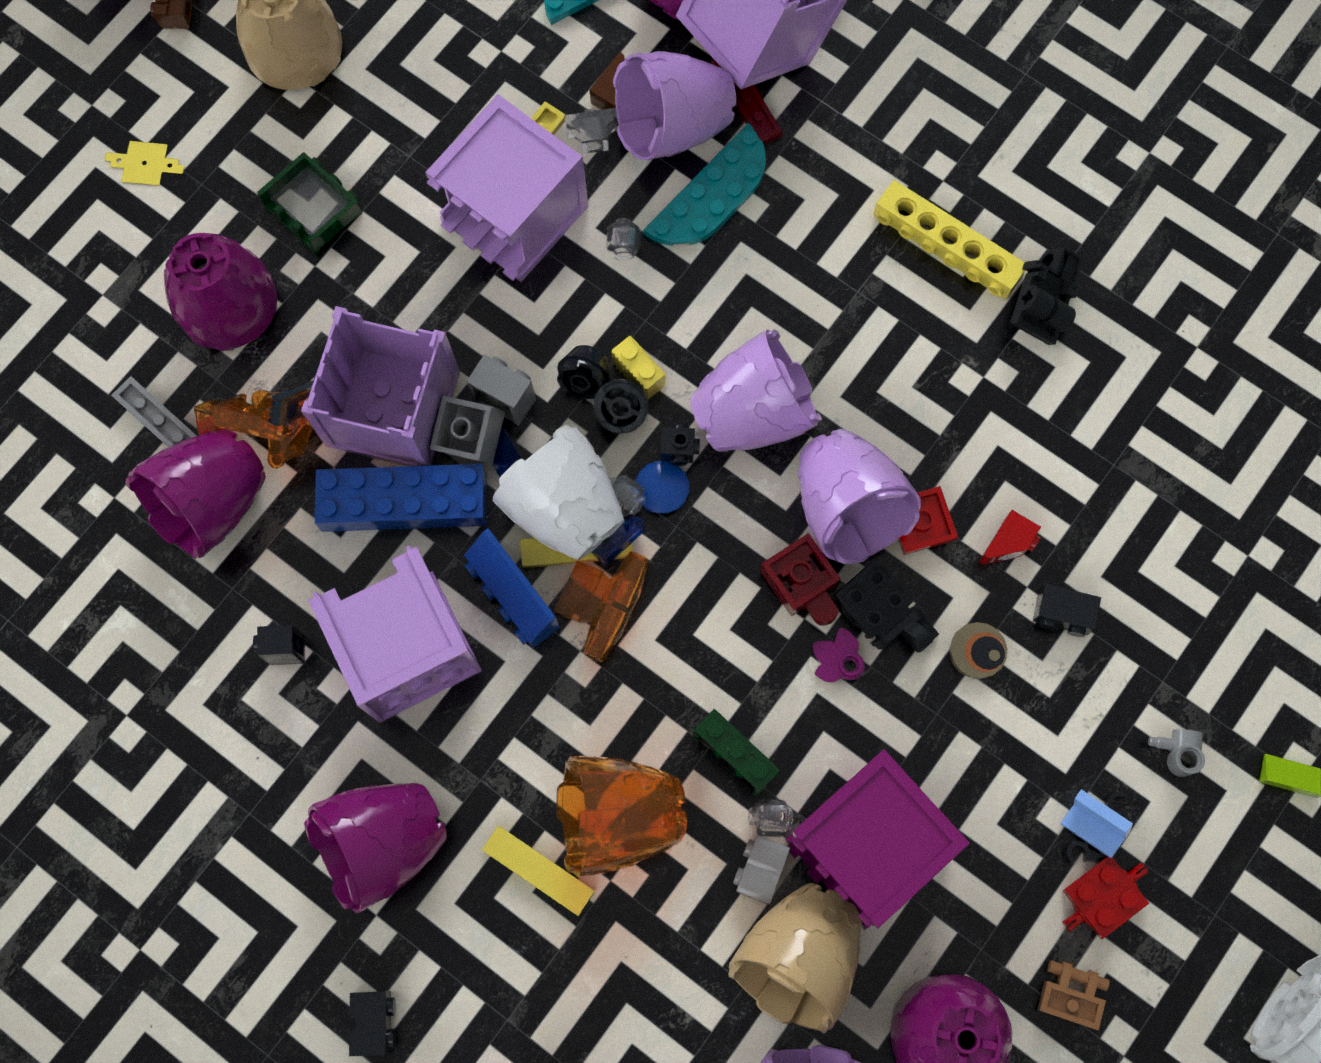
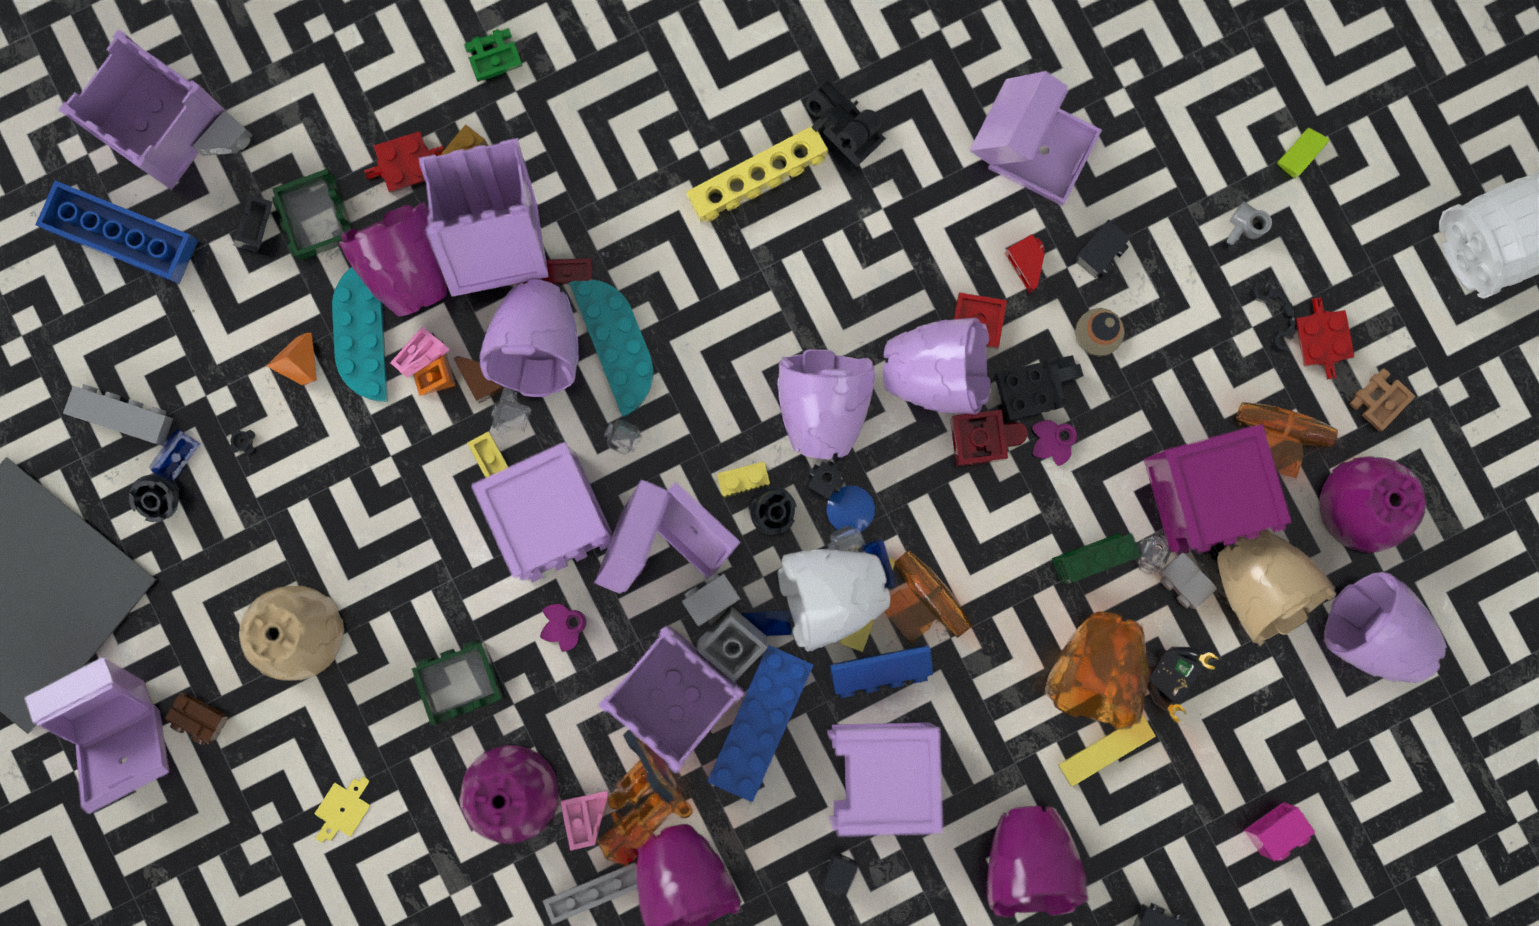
camera: 70 degrees left, 10 degrees up
(229, 377) = (583, 818): none -> bright pink wing
(409, 271) = (559, 626): none -> magenta plate
(537, 276) = (673, 516): none -> lavender container
(583, 371) = (733, 518): black cone -> none
(599, 50) = (434, 376): none -> orange slope
(610, 24) = (419, 352): none -> bright pink wing
(652, 901) = (1173, 675): none -> torso
(974, 900) = (1287, 433): none -> clear orange plate
(1097, 824) = (1271, 316): light blue panel -> none
(1147, 468) = (1023, 121): none -> lavender container

